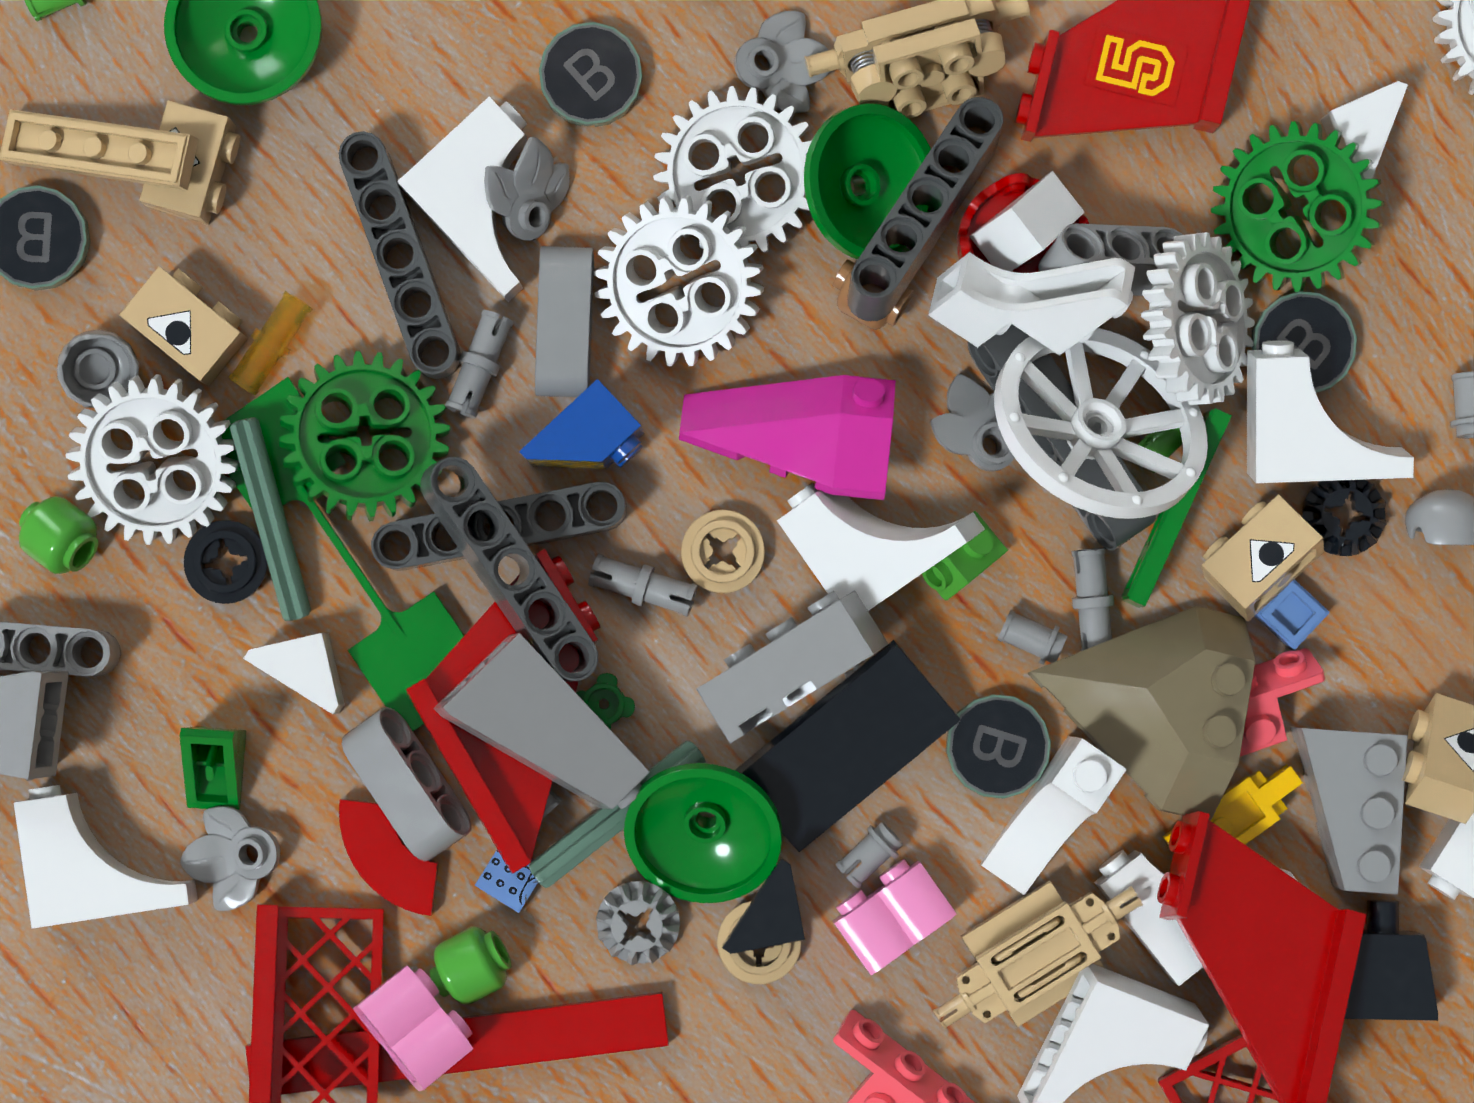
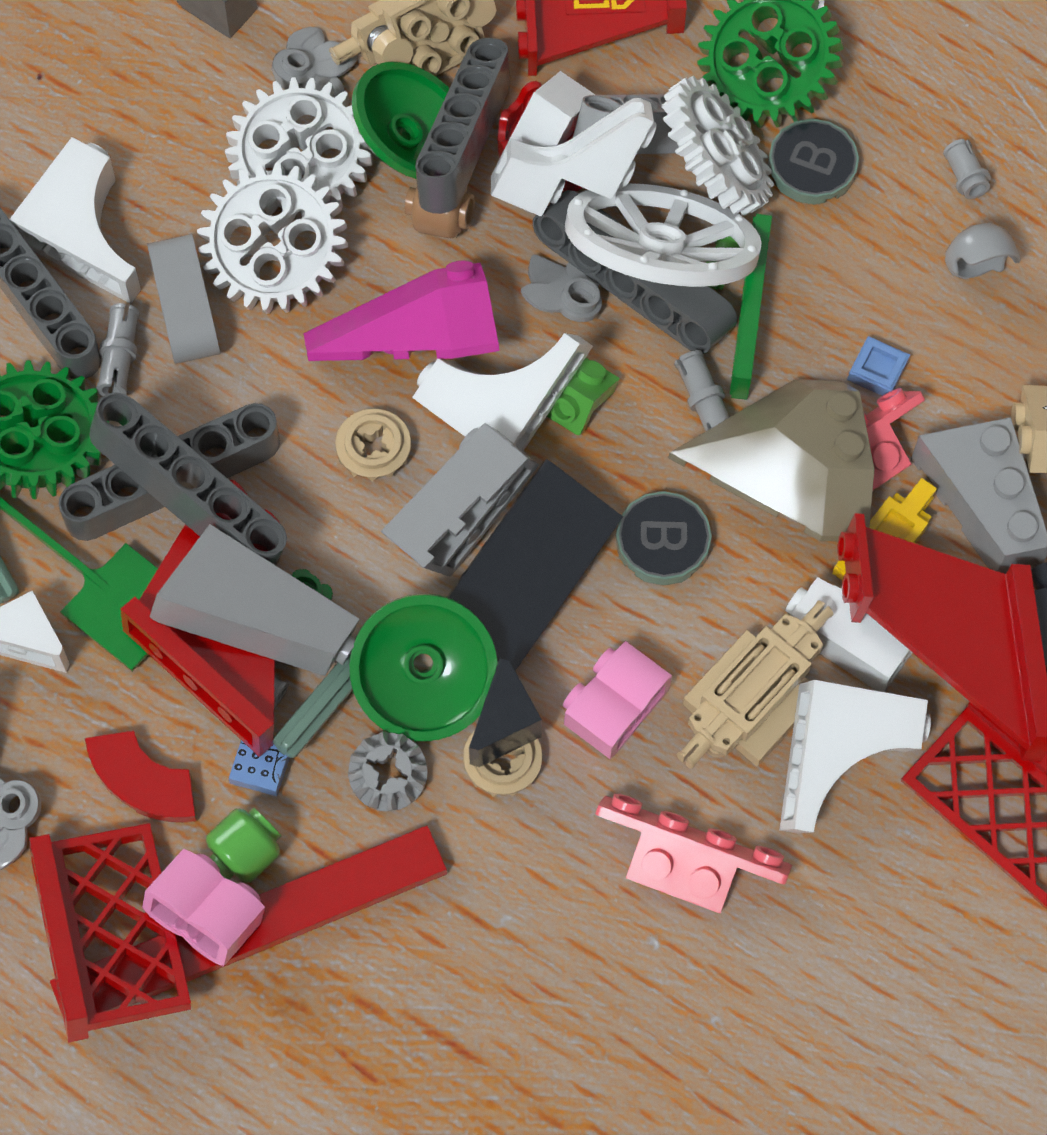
camera: 15 degrees left, 20 degrees down
(406, 784) = (142, 704): light grey beam -> none
(531, 189) = (123, 204): light grey plate -> none
(587, 434) = (225, 370): blue slope -> none
(590, 74) = (154, 113): black tile -> none
(643, 585) = (310, 488): light grey pin -> none
(871, 852) = (579, 654): light grey pin -> none
(1032, 637) = (660, 439): light grey pin -> none
(1057, 804) = (729, 563): white arch -> none
(1261, 556) = (837, 322): tan brick -> none
(1293, 435) = (832, 221): white arch -> none
(1358, 535) = (880, 290): black gear -> none

